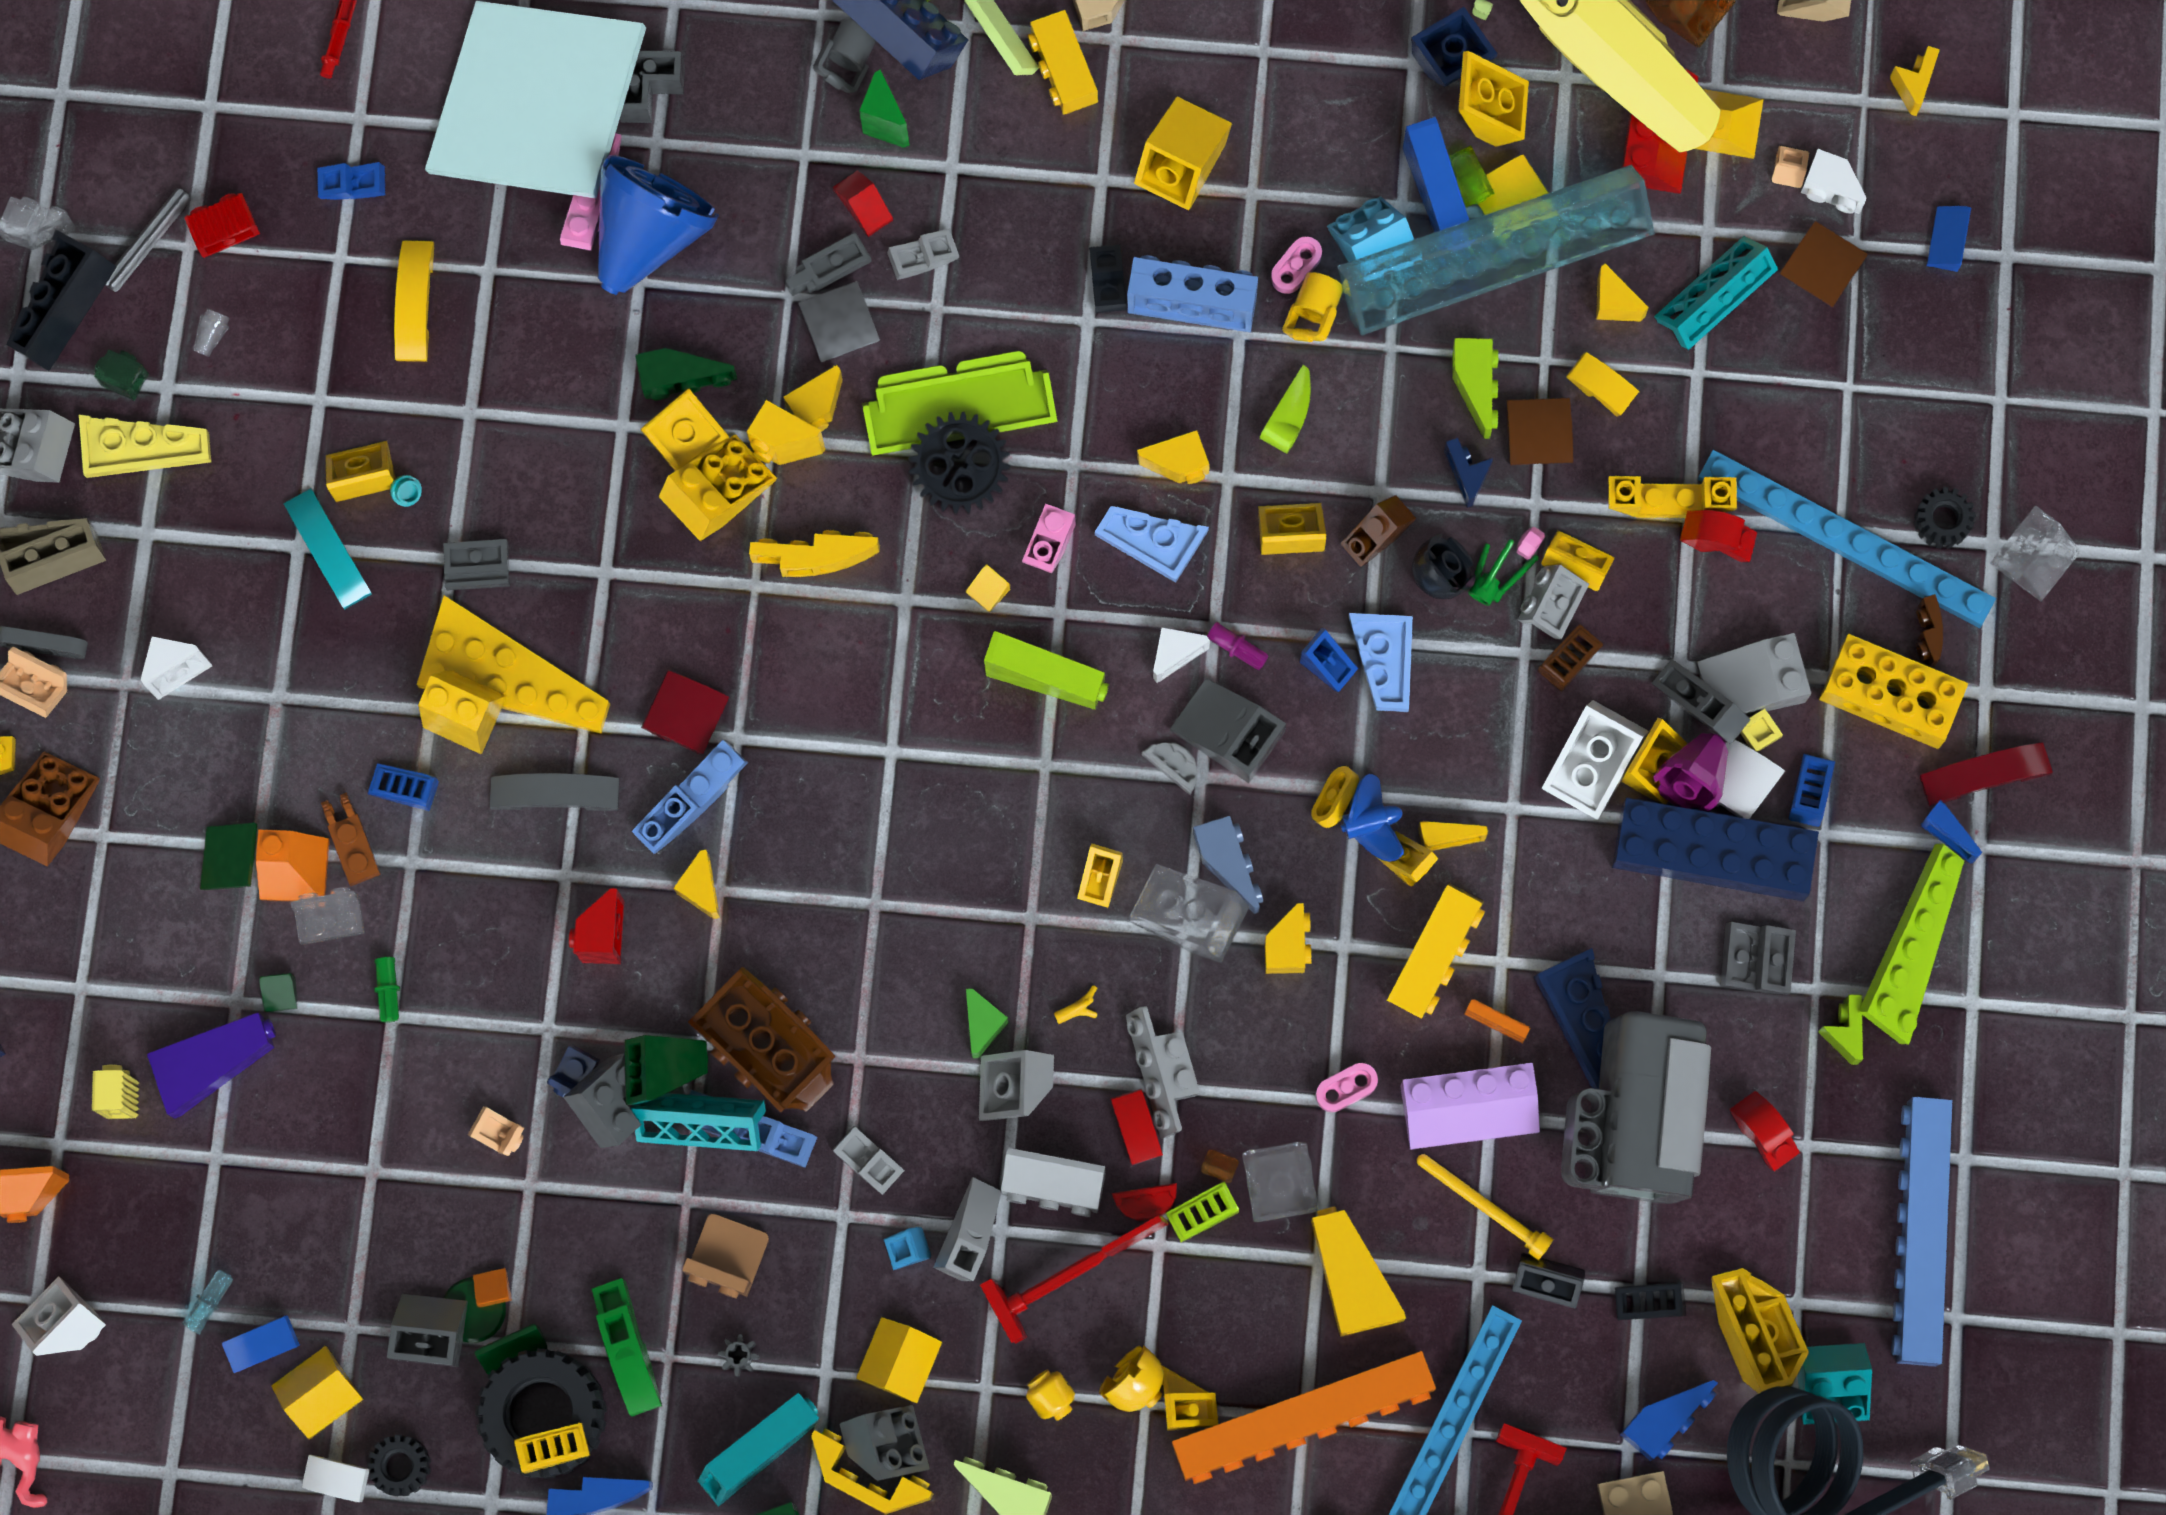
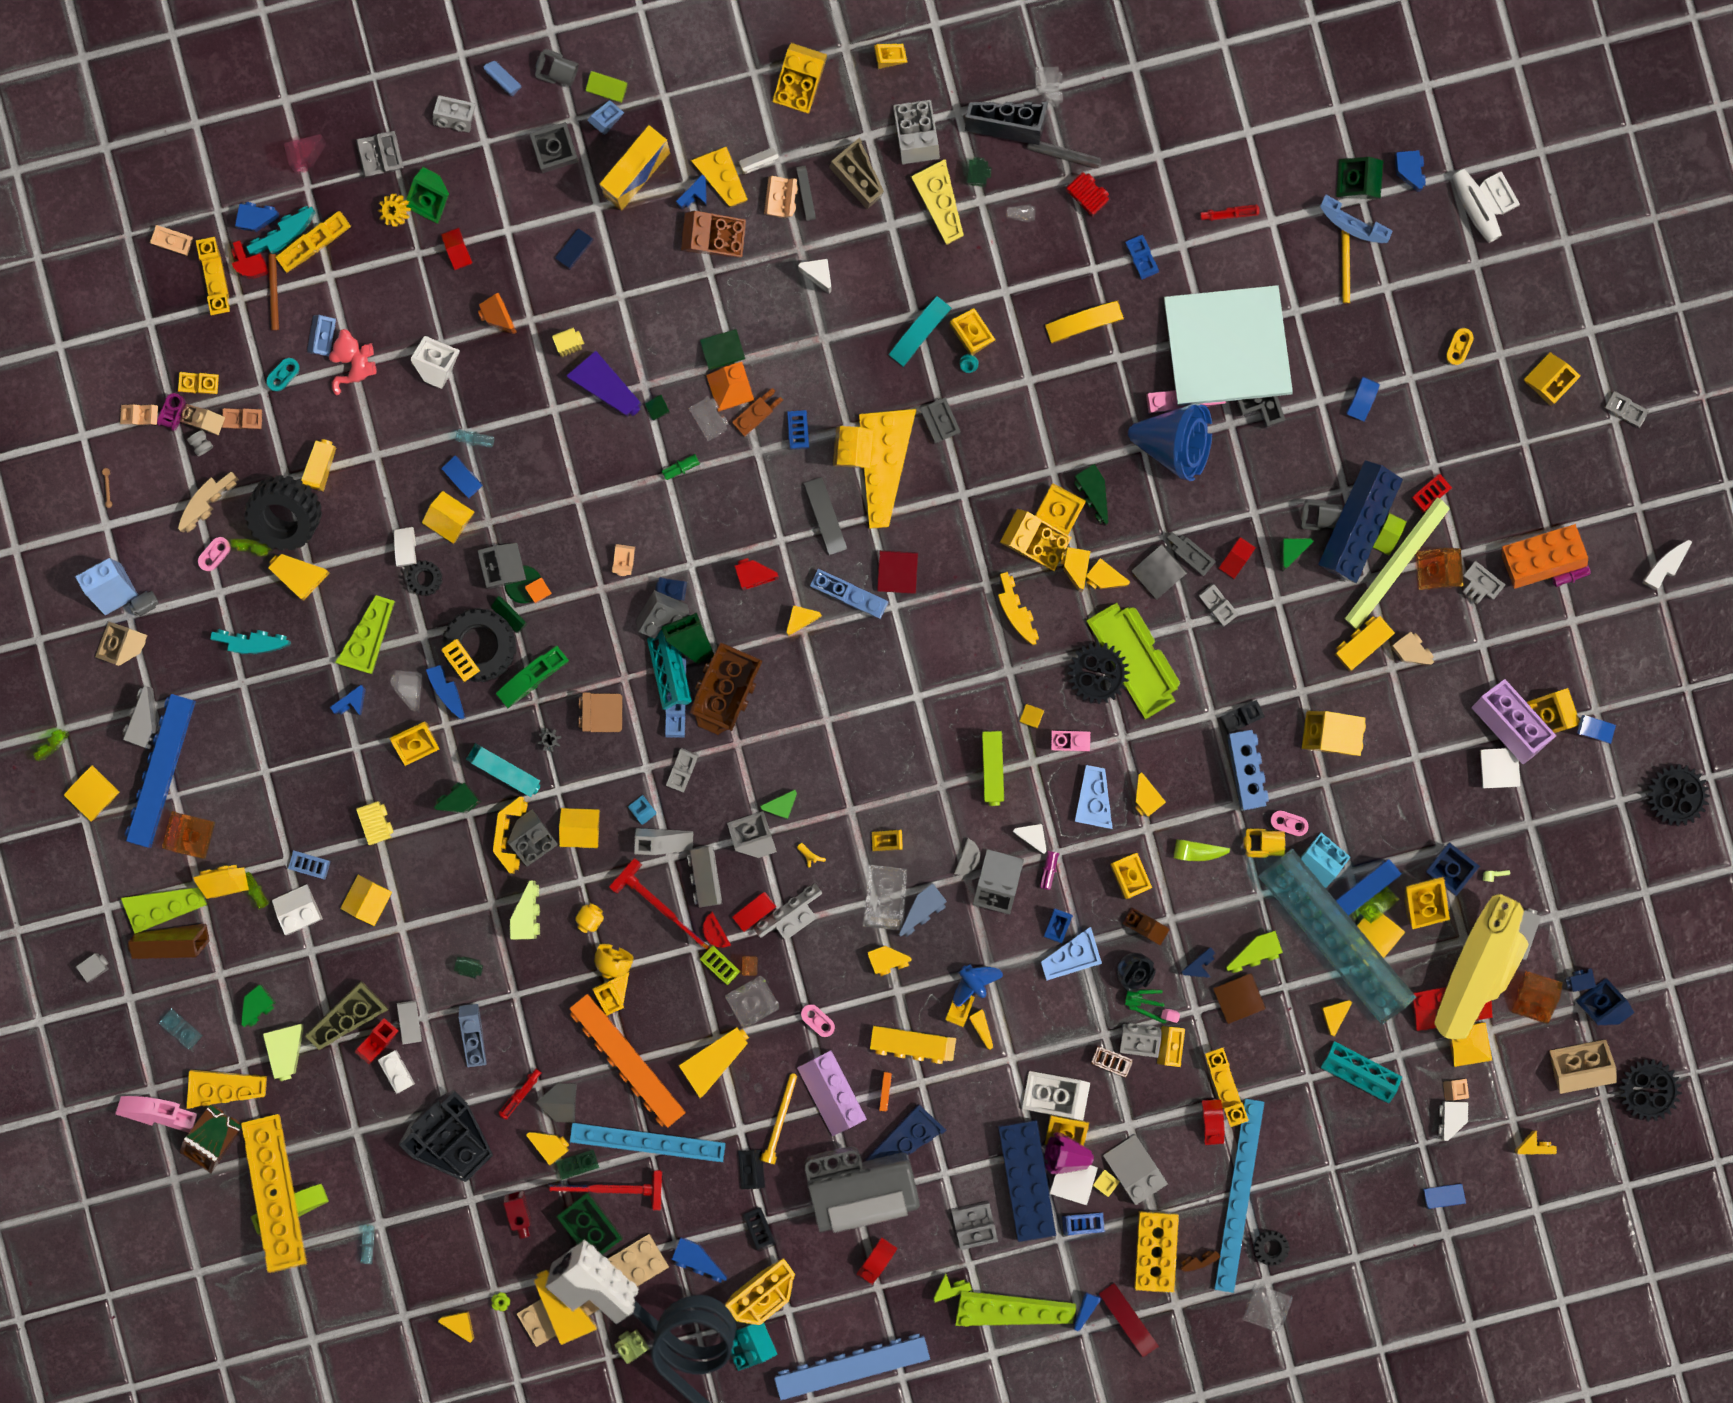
camera: 70 degrees right, 10 degrees up
(1335, 797) = (981, 956): yellow plate -> none
(1603, 383) = (1281, 1025): yellow slope -> none
(1701, 701) = (1110, 1144): dark grey slope -> none
(1823, 264) = (1401, 1129): reddish brown slope -> none

